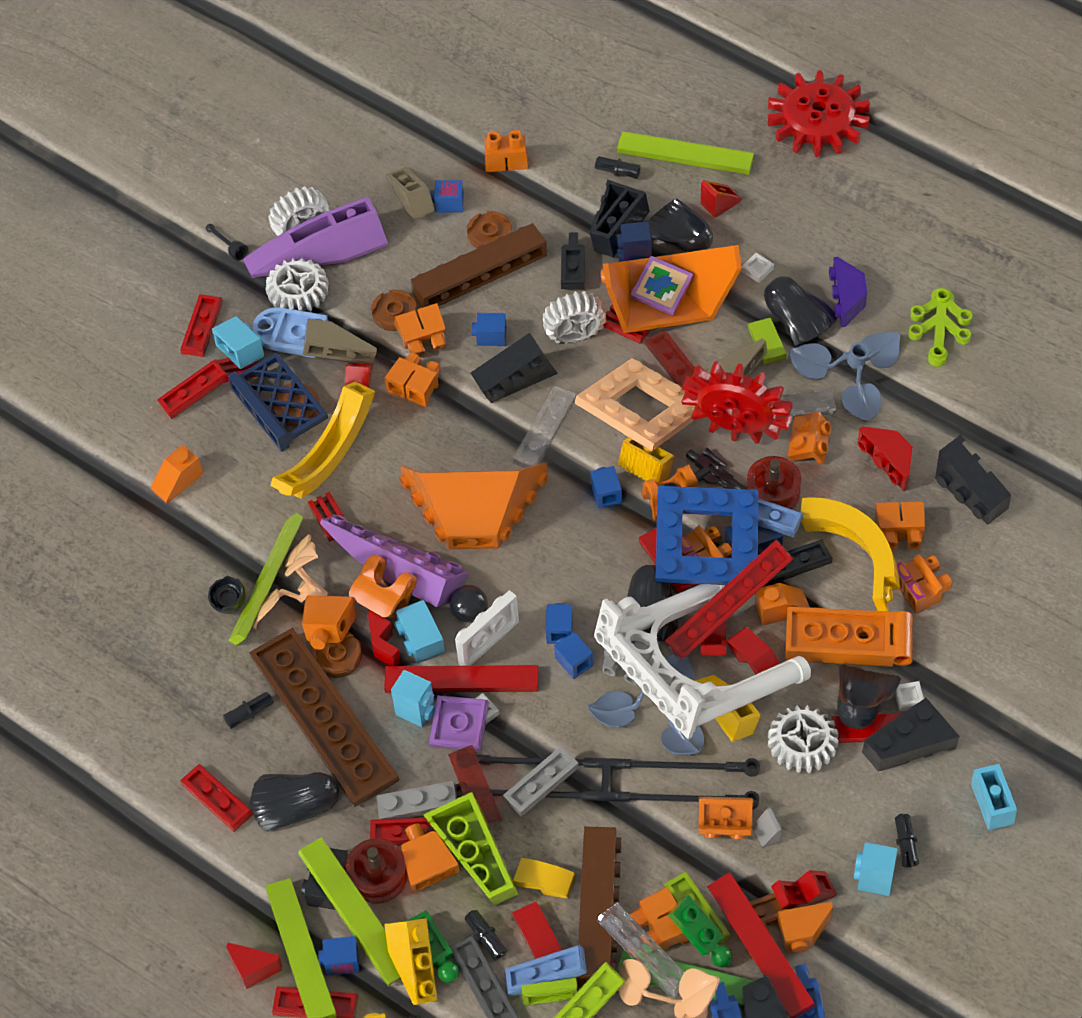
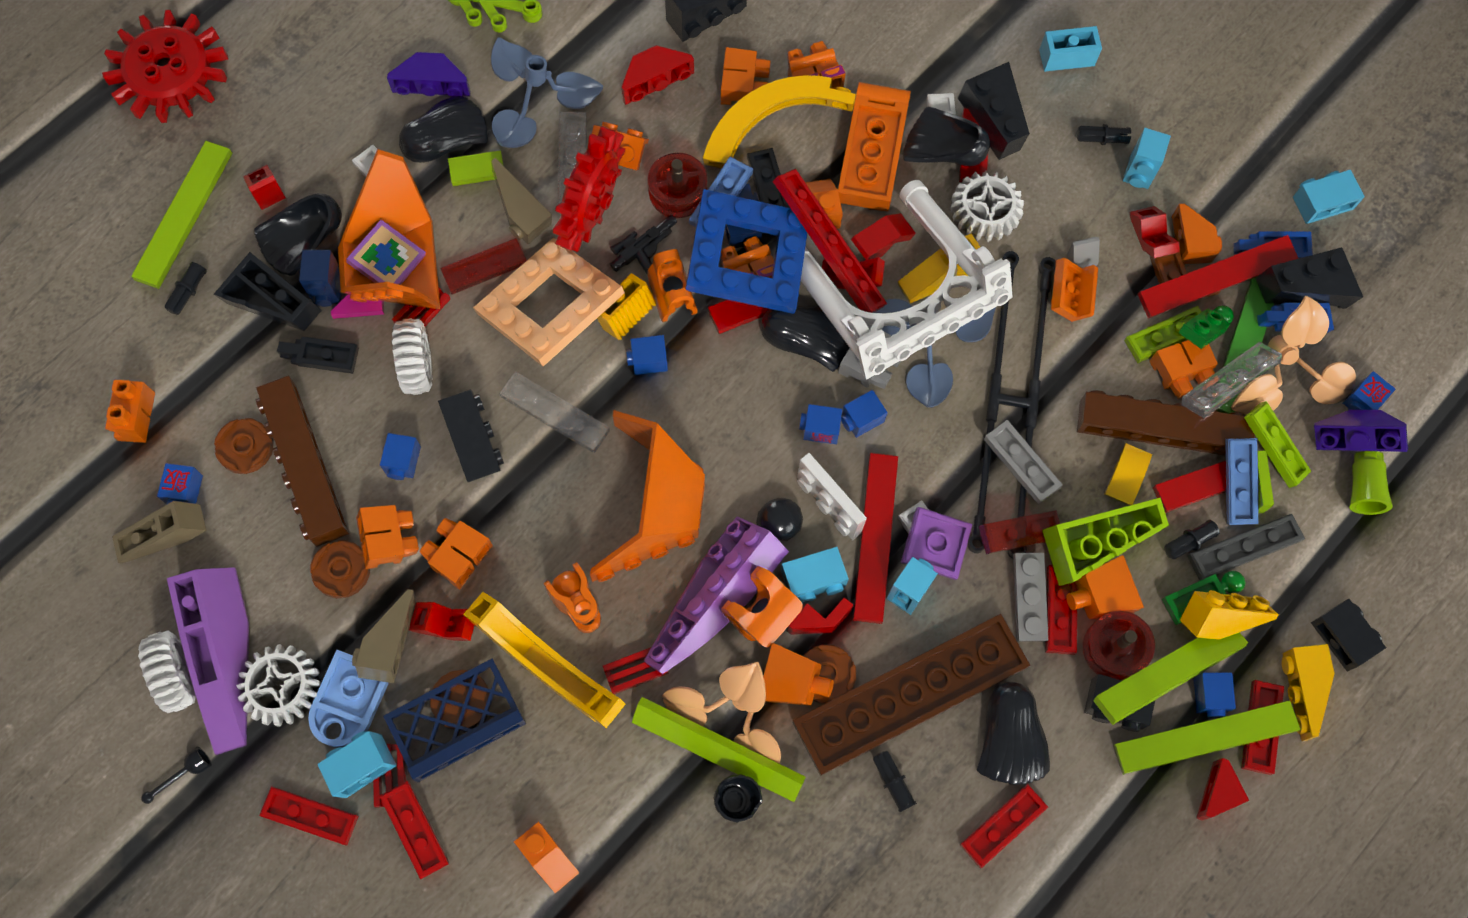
camera: 90 degrees left, 15 degrees up
(384, 459) = (573, 596): none -> orange piece

